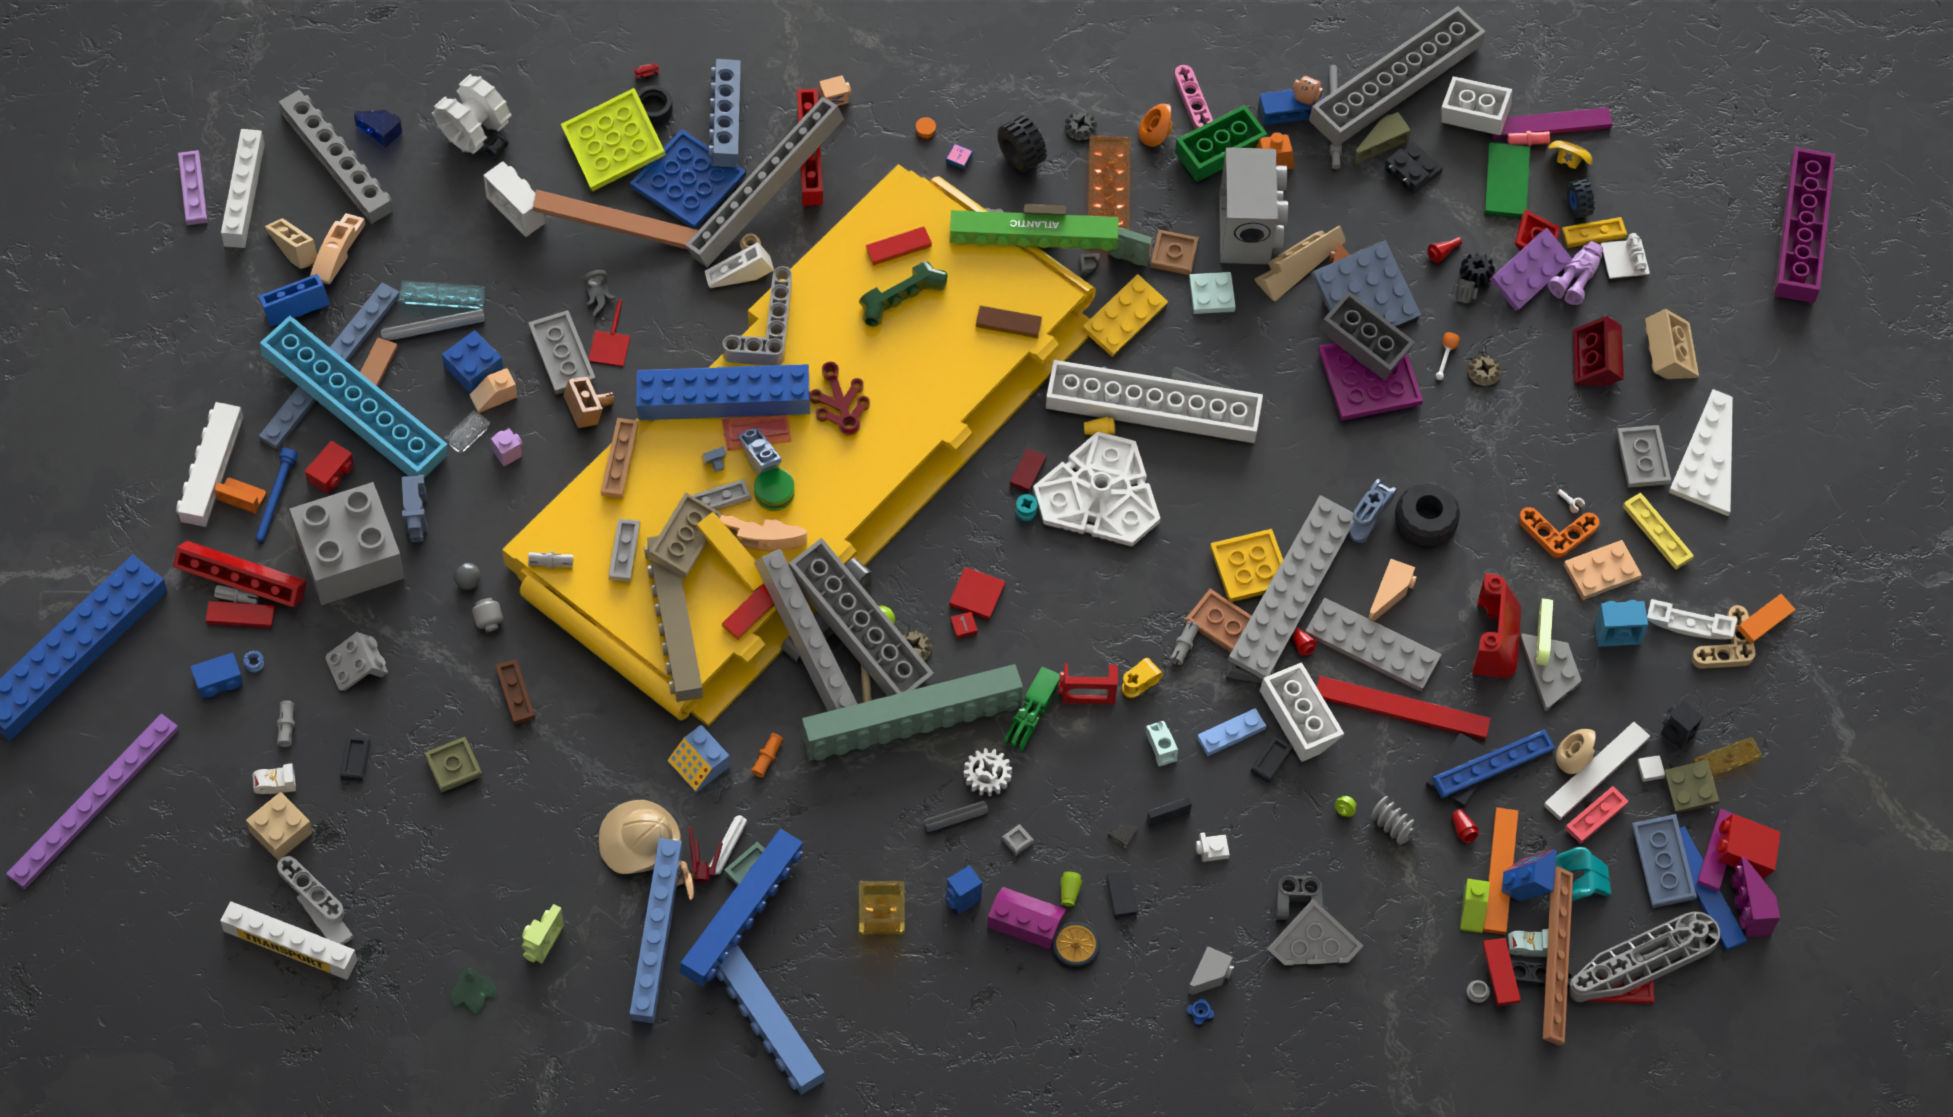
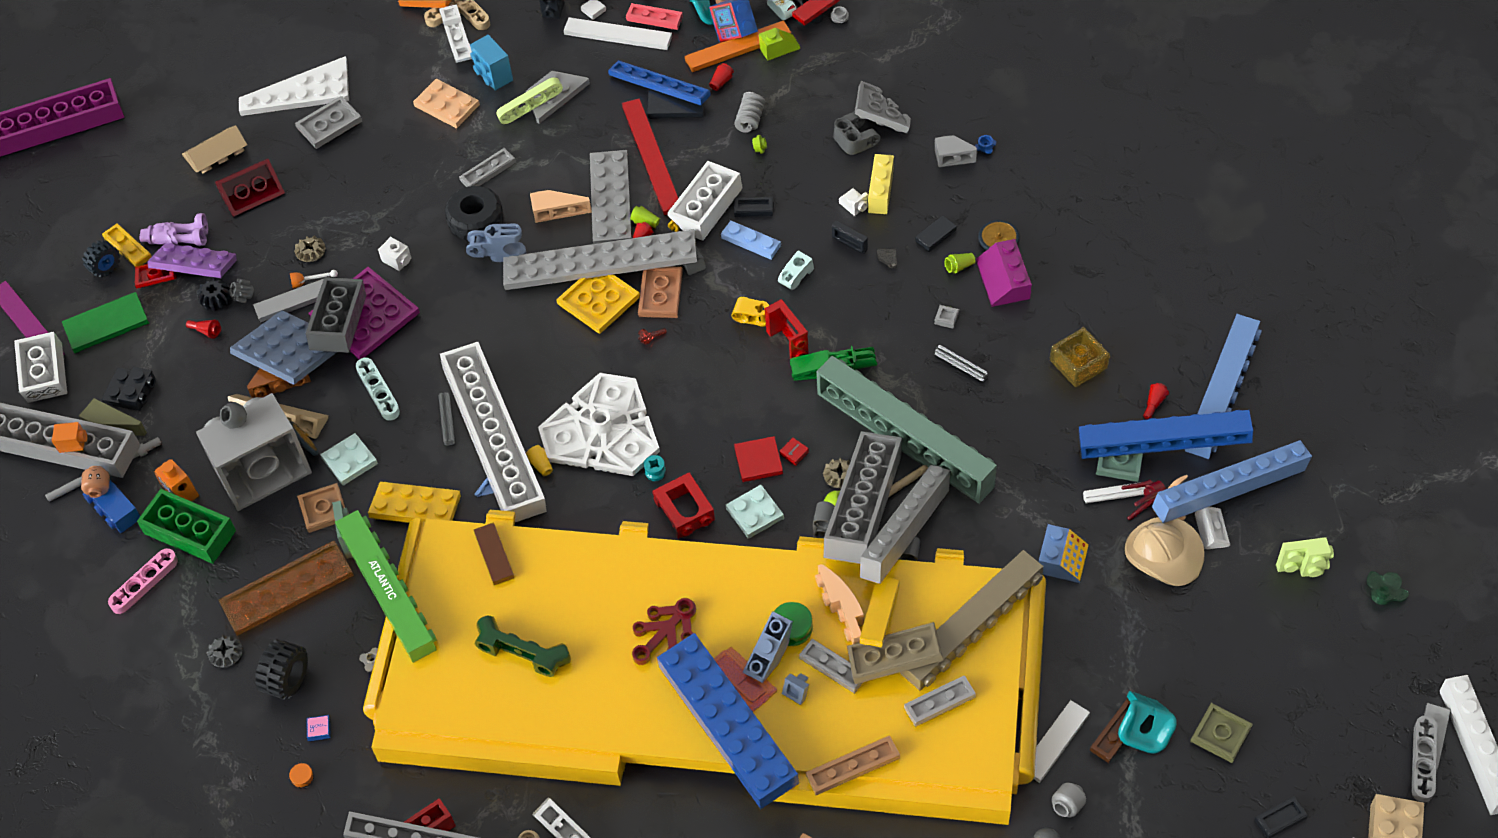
camera: 115 degrees left, 5 degrees down
(514, 716) = (1162, 728): none -> teal piece
(544, 645) = (1058, 738): none -> white tile
(550, 560) = (994, 754): light grey pin -> none
(630, 898) = (1212, 528): none -> white slope
(749, 612) = (921, 572): red tile -> none
(767, 755) = (1017, 512): orange pin -> none
(775, 324) = (625, 730): light grey beam -> none
(796, 949) = (1157, 395): none -> red cone
(898, 245) = (468, 684): red tile -> none
(926, 560) = (754, 511): none -> light aqua plate
(950, 515) = (667, 493): none -> red panel
(963, 890) = (1022, 313): blue brick -> none
(991, 764) = (910, 360): white gear -> none
(1028, 470) = (616, 489): dark red tile -> none
(1044, 209) = (354, 599): dark tan tile -> none
(1155, 125) = (192, 585): orange hat -> none
(1178, 580) = (646, 337): none -> clear red hand
(1184, 643) = (698, 302): light grey pin -> none
(1213, 878) = (881, 184): none -> light yellow brick
(1250, 259) = (304, 440): none -> wheel
(1265, 174) = (233, 415): none -> dark grey piece
(1274, 344) = (378, 388): none -> light aqua beam
(1322, 655) = (641, 215): none -> lime cone
(1361, 81) = (69, 437): none -> orange brick
(1424, 430) = (394, 254): none -> white brick
(1429, 331) = (288, 301): none -> light grey tile
(1483, 554) = (488, 168): none -> light grey tile
(1499, 650) = (547, 120): red windscreen -> none
(1528, 138) = (52, 324): coral pin -> none
(1554, 537) = (411, 128): orange beam -> none
(1571, 153) = (55, 289): yellow hat -> none
(1576, 751) = (613, 42): tan hat -> none
(1580, 502) = (399, 143): white hand -> none
(1625, 258) = (141, 213): white hinge -> none
(1658, 531) = (390, 86): light yellow plate -> none

